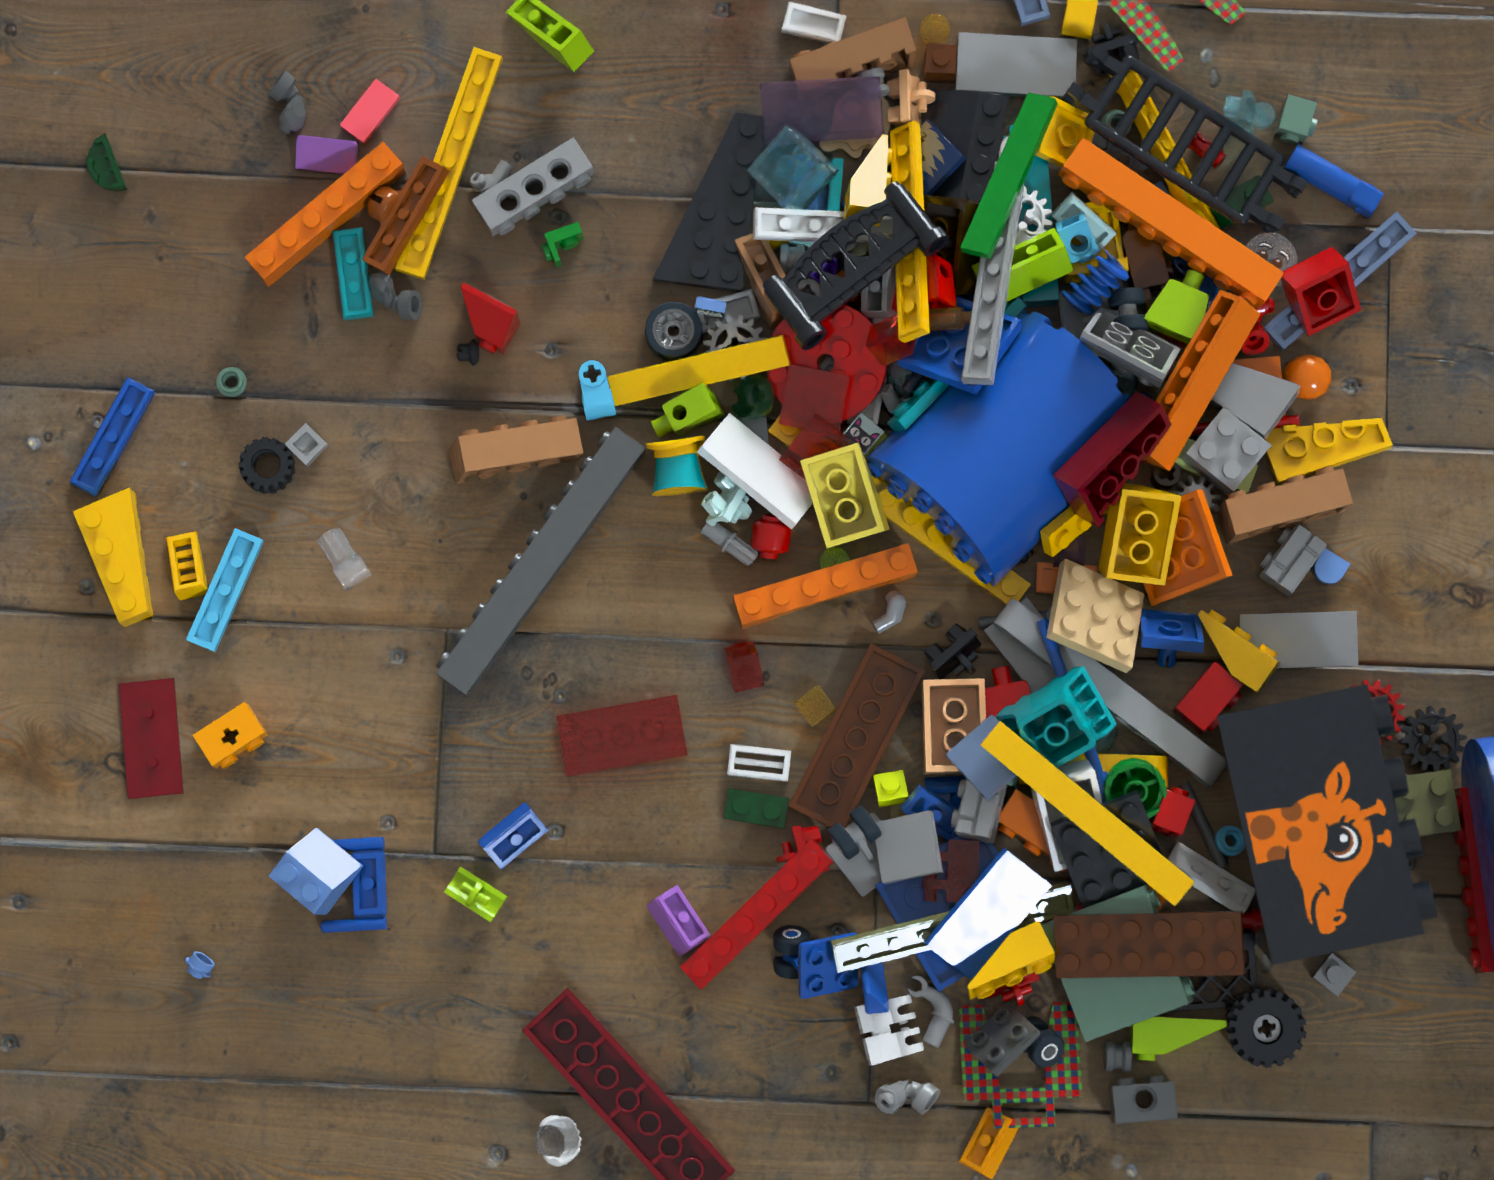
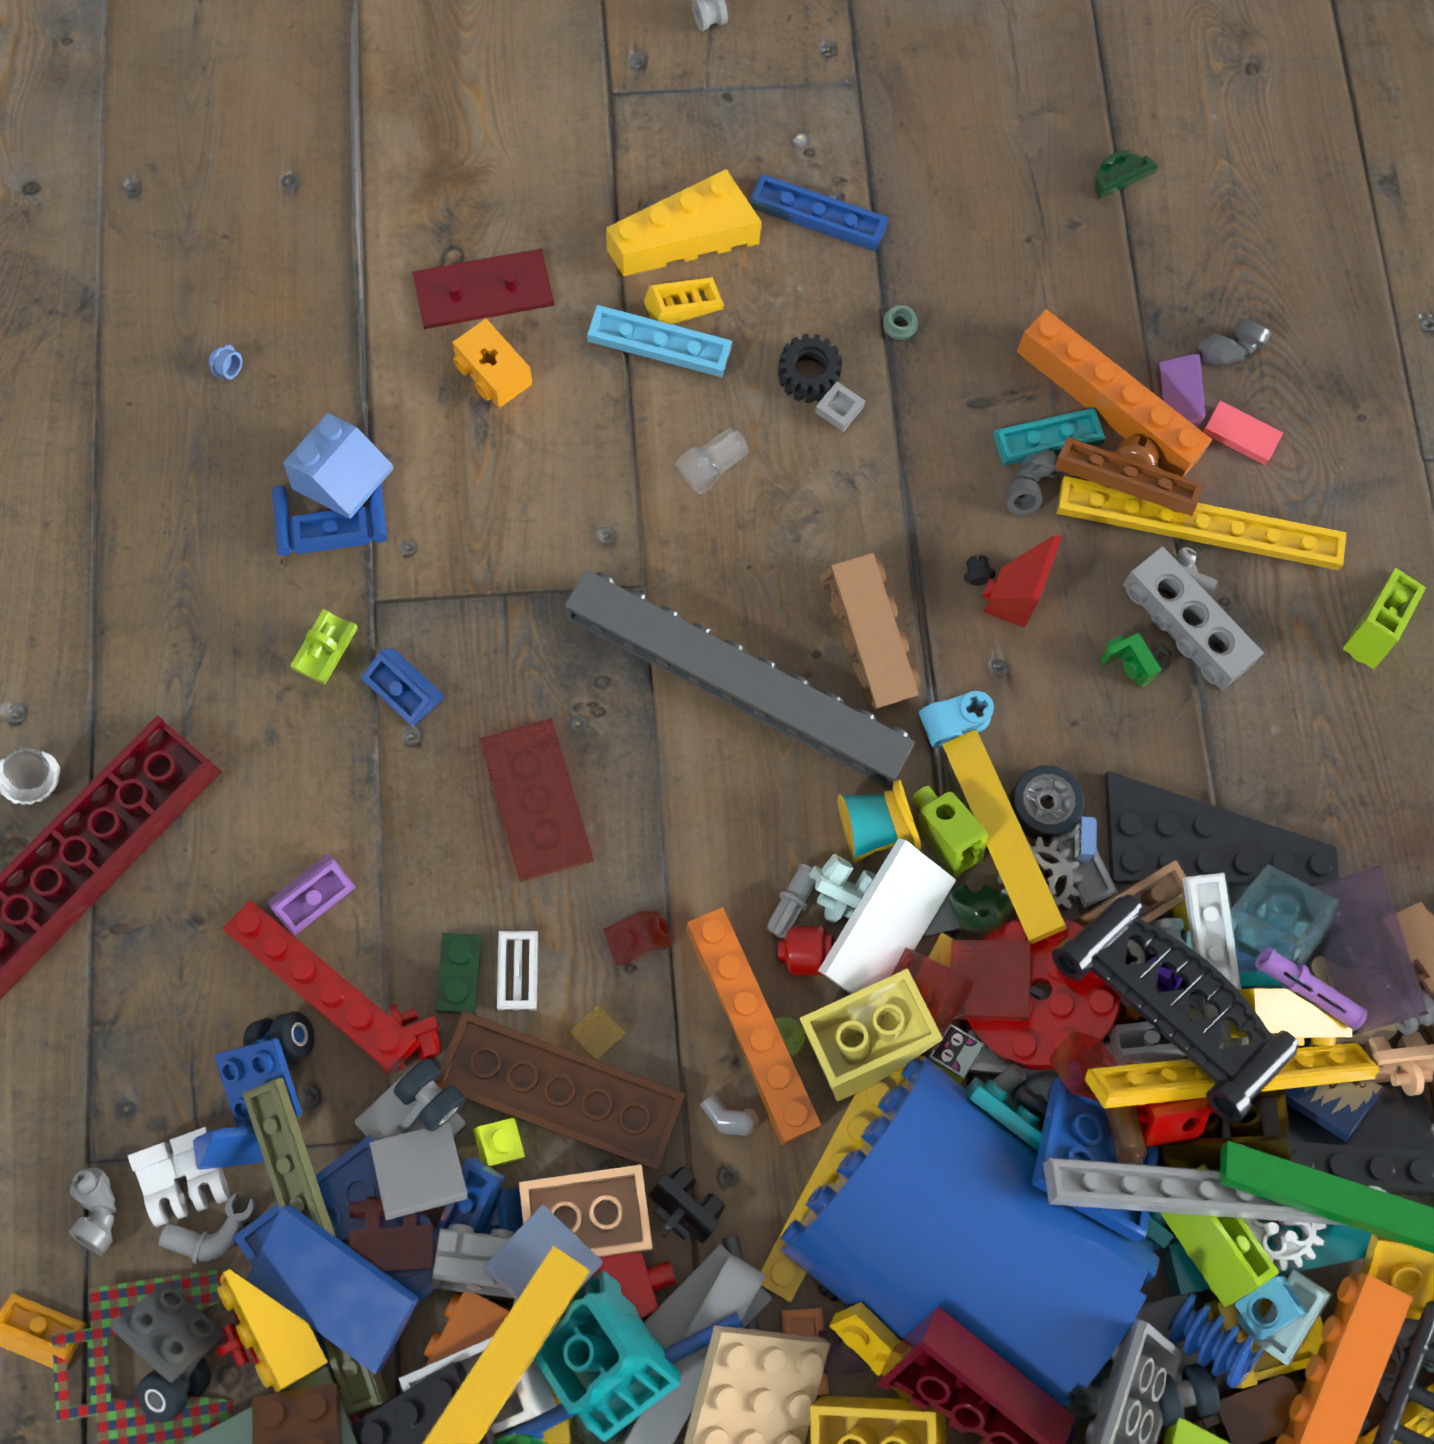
camera: 80 degrees right, 10 degrees down
(844, 168) = (1278, 966): none -> medium lavender pin

